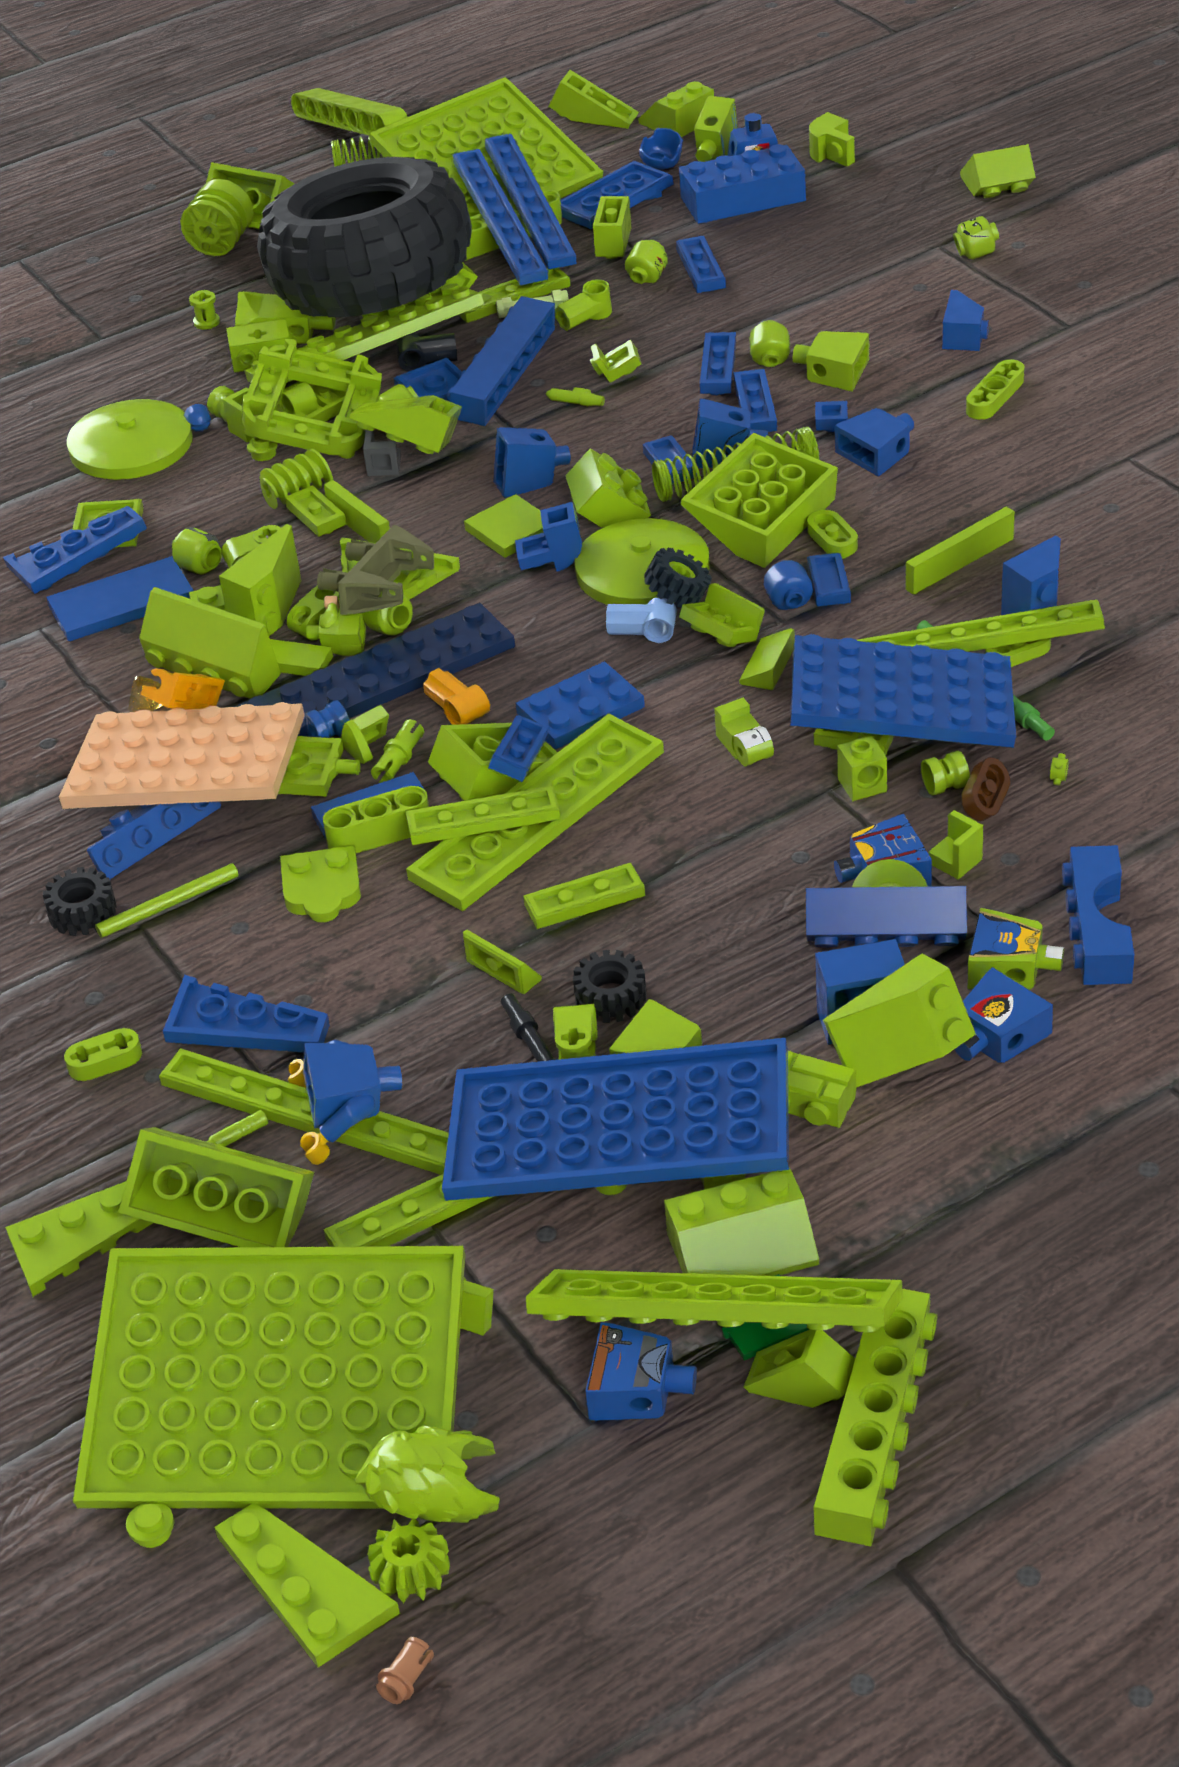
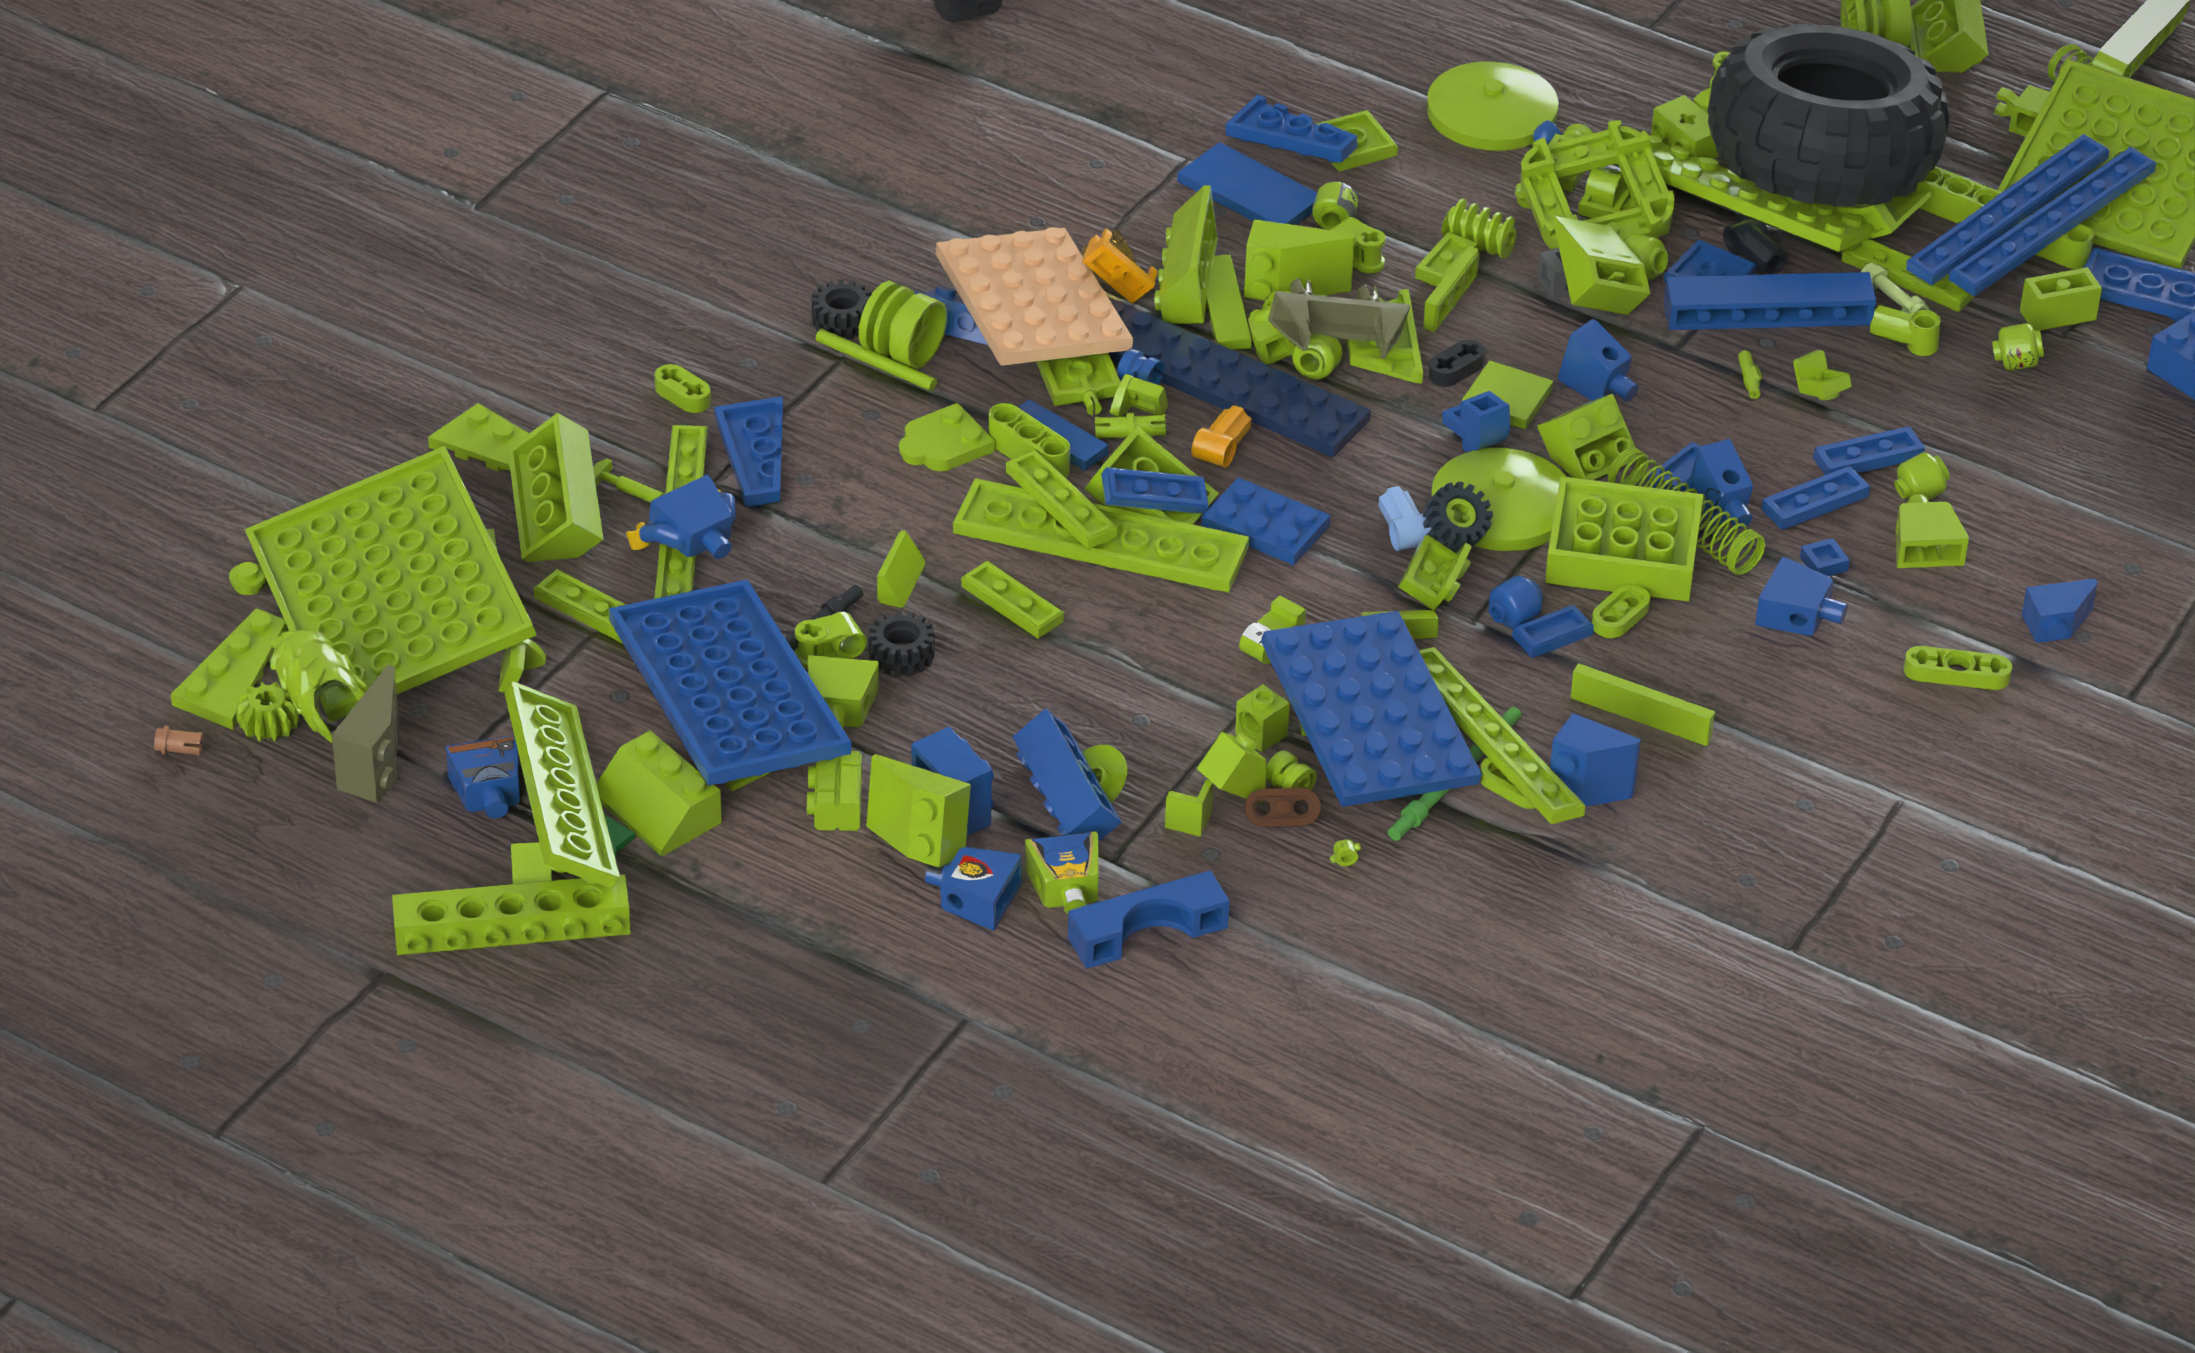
camera: 60 degrees right, 0 degrees up
(160, 852) = (902, 324): none -> lime wheel
(454, 539) = (1456, 363): none -> black beam
(538, 1455) = (368, 741): none -> olive slope
(700, 264) = (2058, 391): blue tile -> none
(883, 841) = (1154, 766): blue torso -> none
(944, 787) = (1235, 765): none -> lime slope

